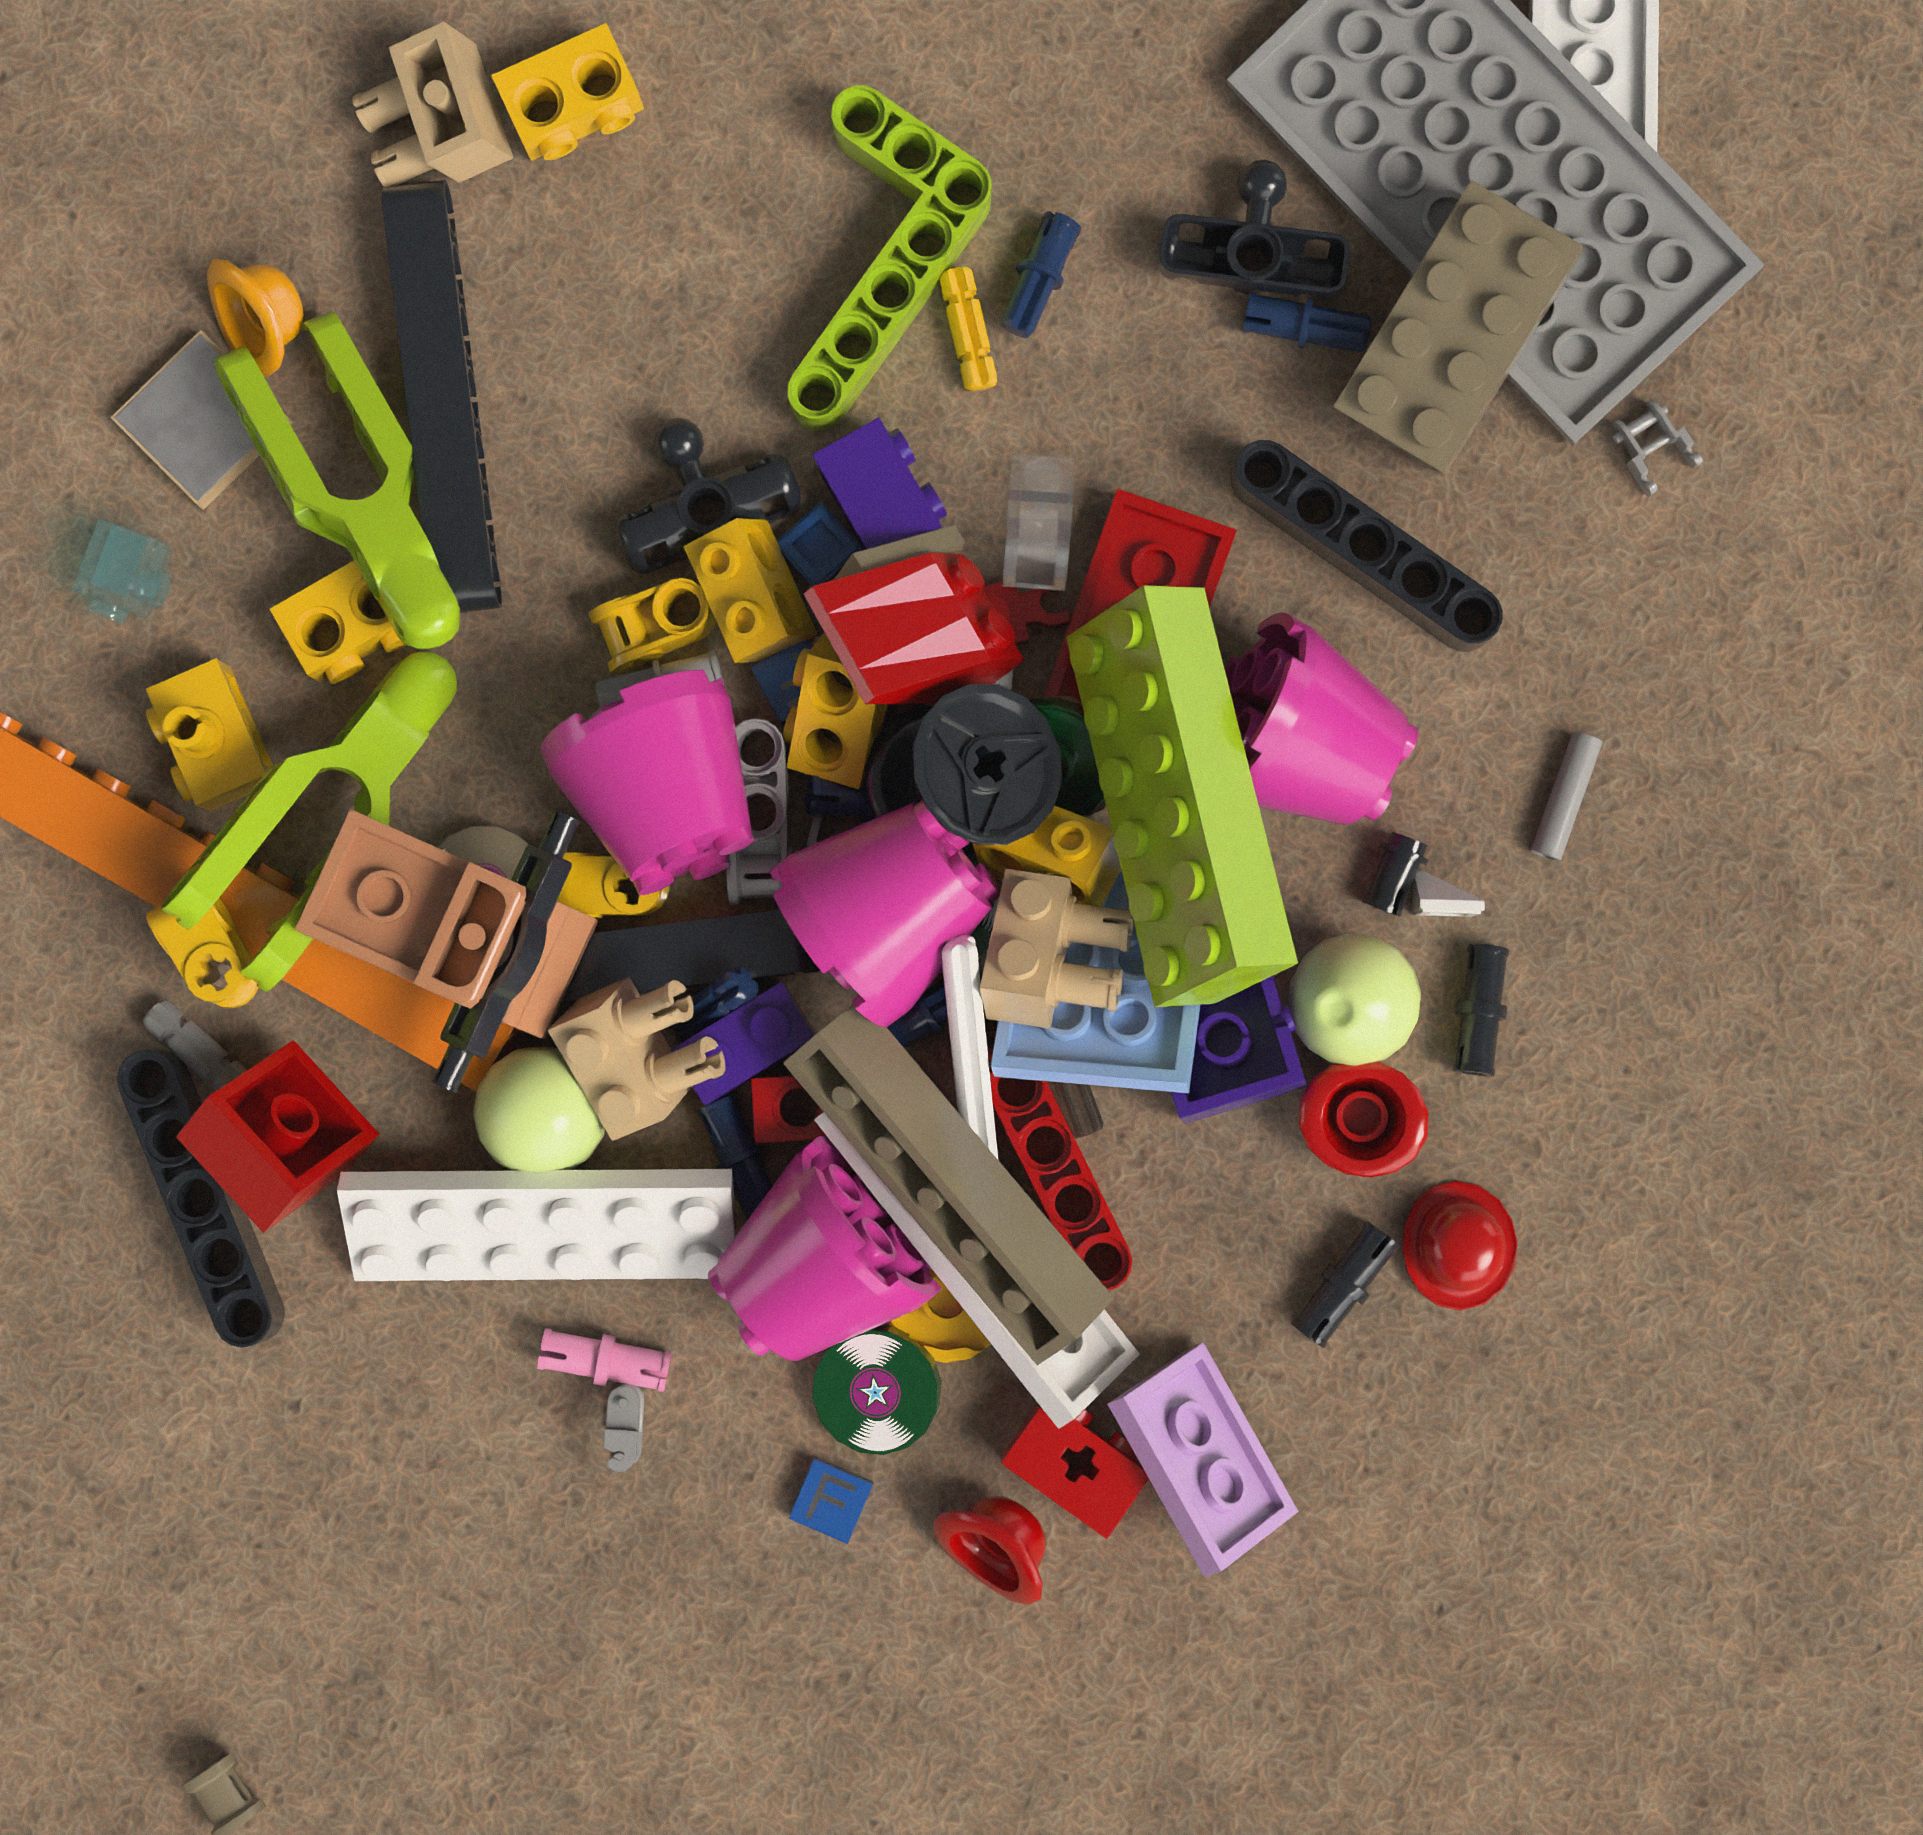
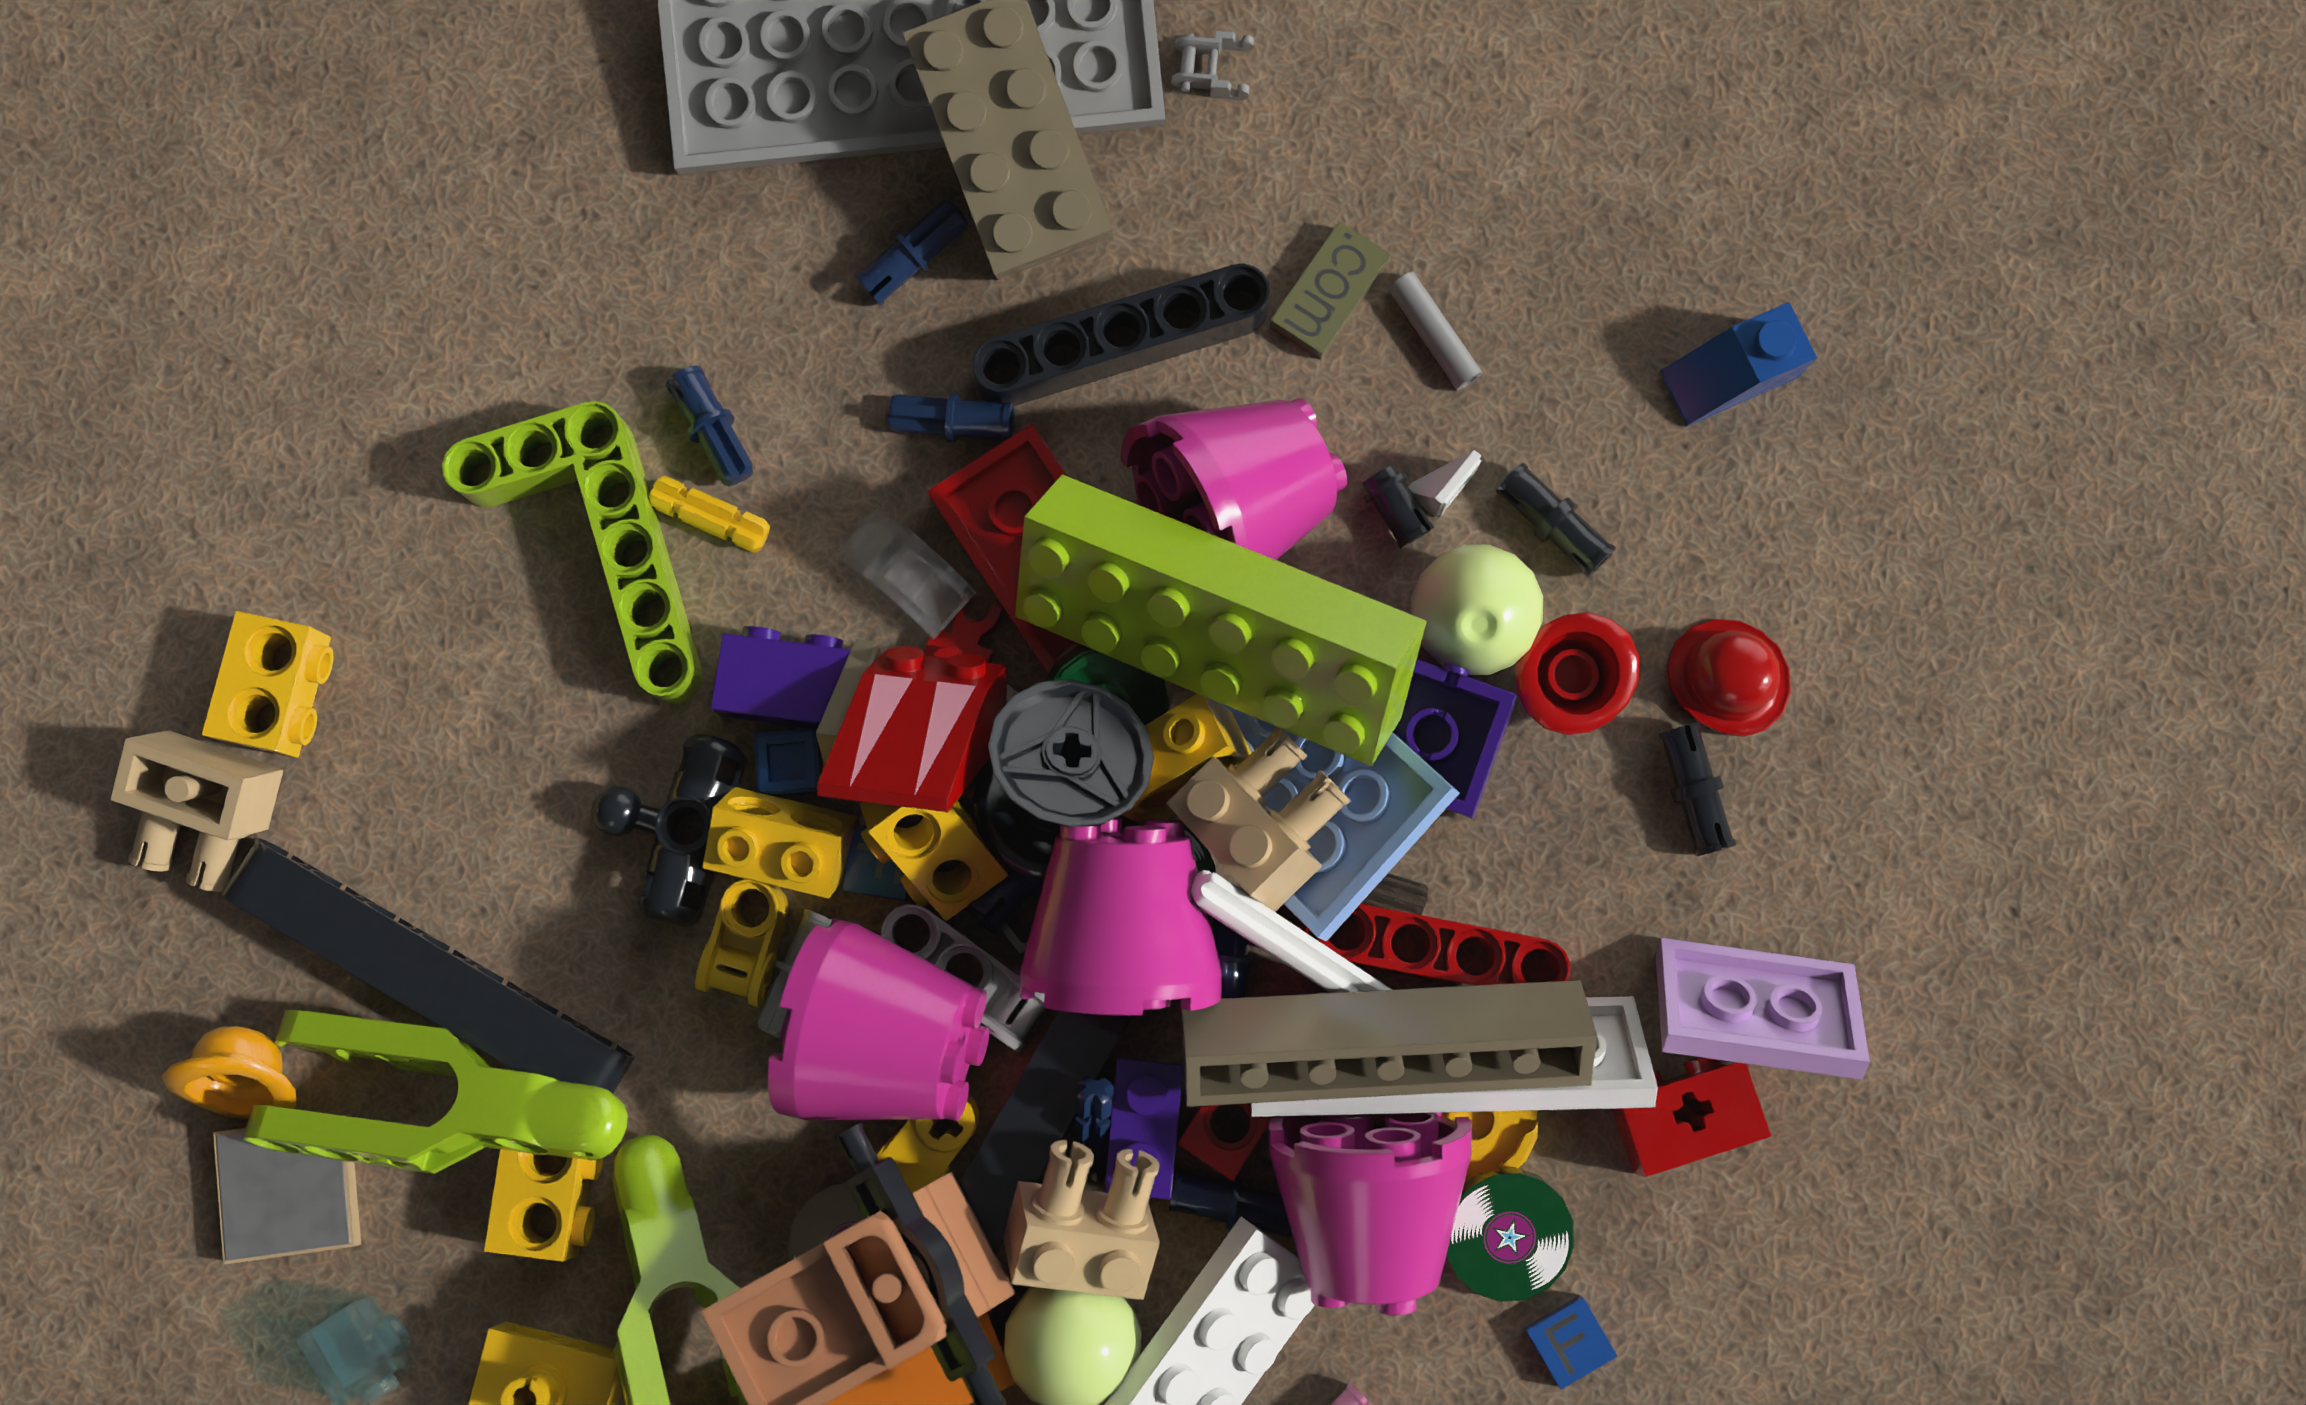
camera: 55 degrees left, 5 degrees down
(997, 1545) = (1710, 1230): red hat -> none
(1194, 461) = (951, 417): none -> dark blue axle
(1215, 262) = (807, 281): black piece -> none
(1535, 685) = (1330, 290): none -> olive tile
(1724, 1064) = (1739, 364): none -> blue slope

